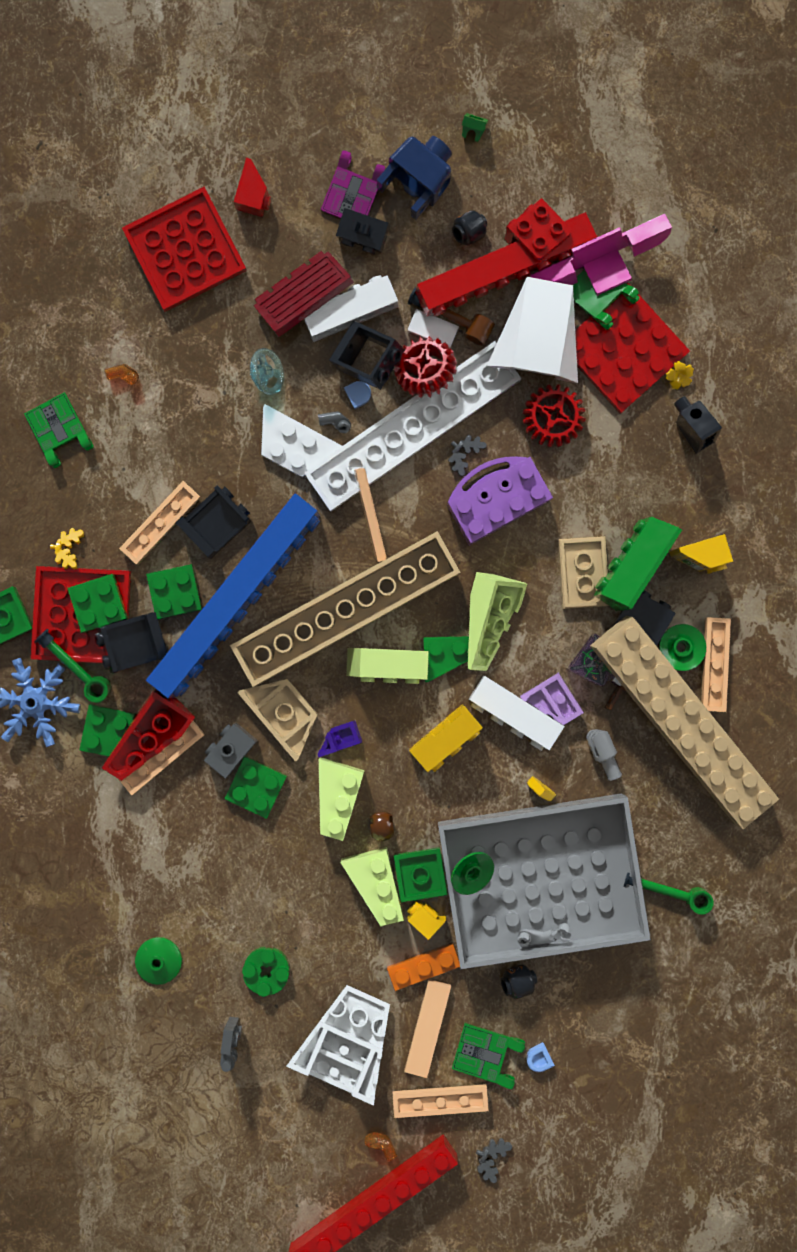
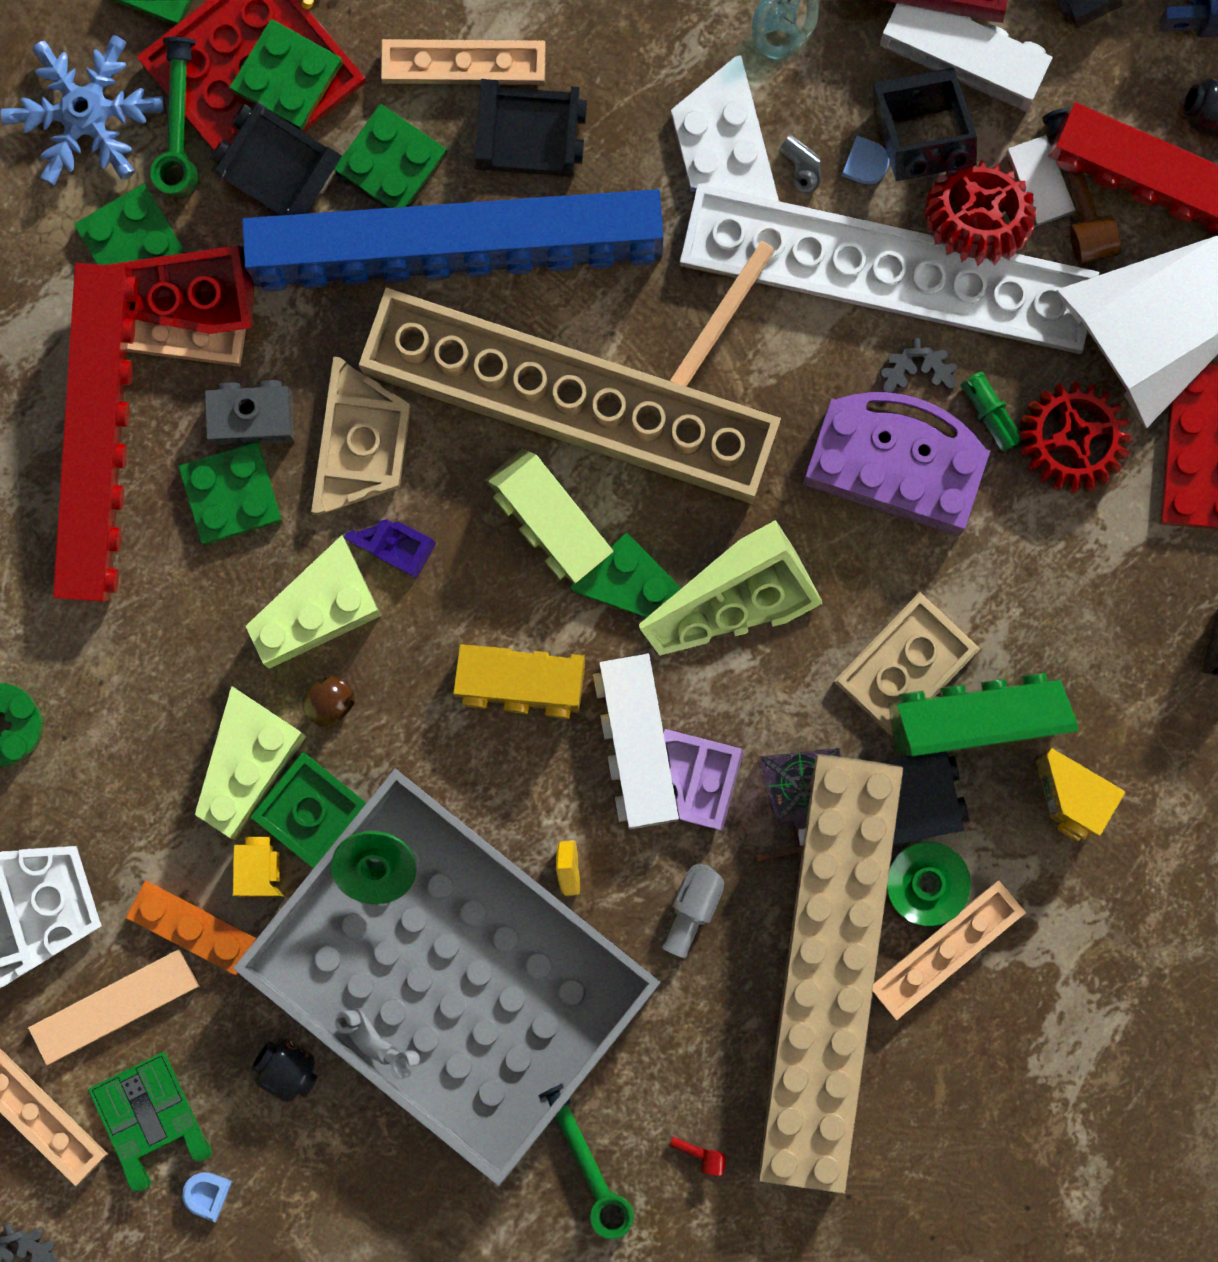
camera: 50 degrees right, 5 degrees down
(178, 823) = (94, 432): none -> red brick
(511, 439) = (992, 411): none -> green axle
(712, 838) = (713, 1160): none -> red hand

